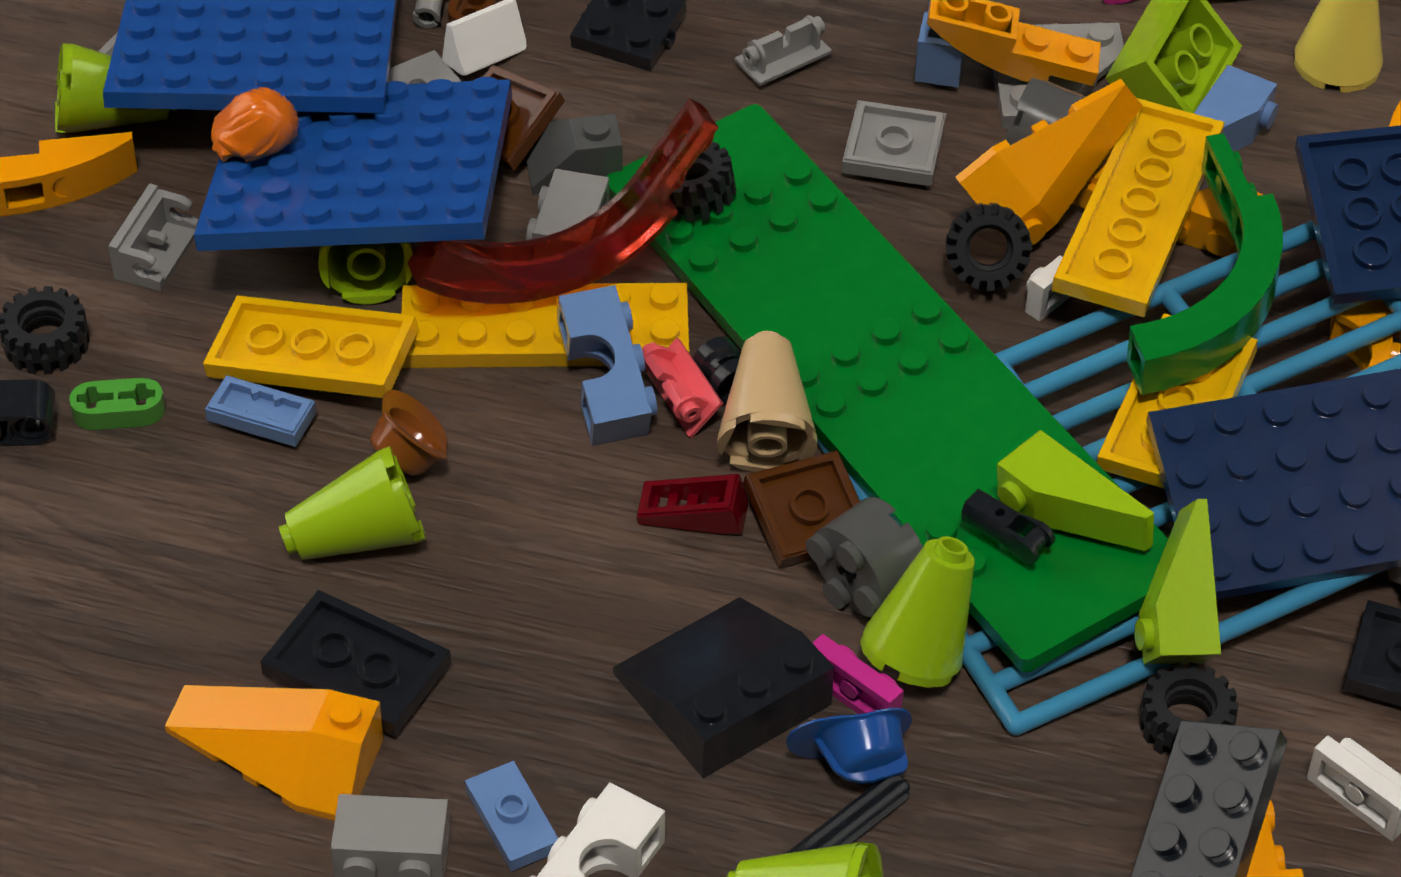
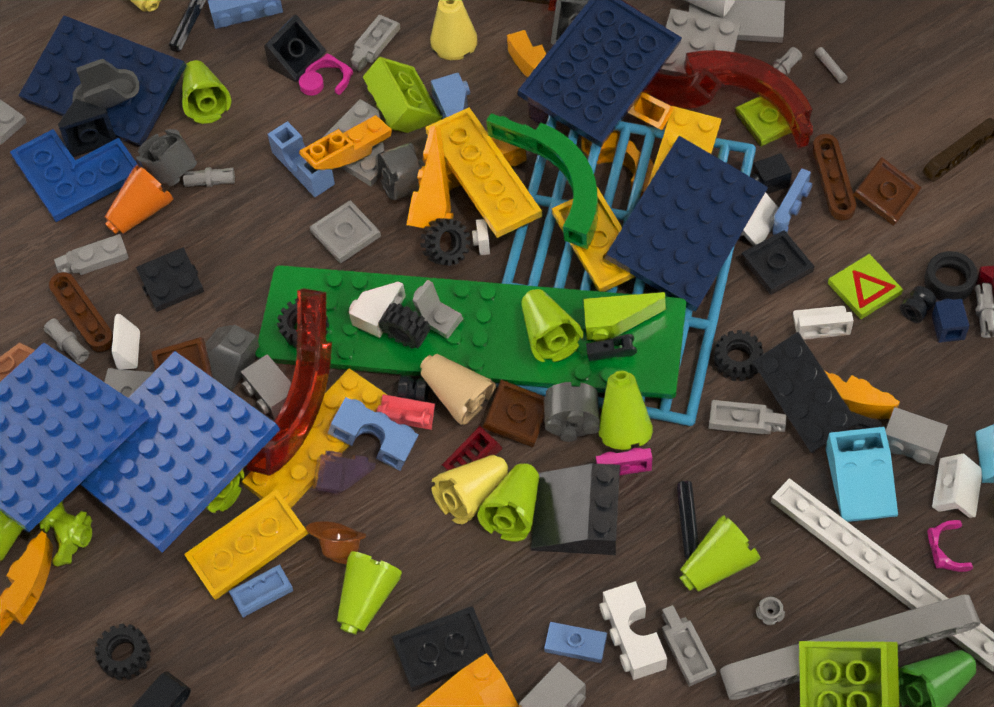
camera: 45 degrees left, 10 degrees up
(117, 403) = (197, 649): bright green beam -> none
(152, 239) = (112, 566): light grey hinge -> none
(163, 157) = (69, 531): none -> lime animal
(254, 125) = (112, 476): orange hair -> none
(508, 374) = (337, 474): none -> clear purple slope
(636, 525) = (467, 486): none -> light yellow cone
(655, 587) = (511, 504): none -> lime cone
(780, 54) = (250, 232): light grey hinge -> none
(791, 274) = (404, 325): none -> black tyre
(795, 234) = (372, 304): none -> white slope
(851, 287) = (439, 316): none -> light grey bracket
(856, 745) = (665, 485): blue piece -> none
(955, 430) = (549, 328): none -> lime cone
(1089, 788) = (745, 418): none -> light grey hinge
(1180, 608) = (697, 312): lime slope -> none

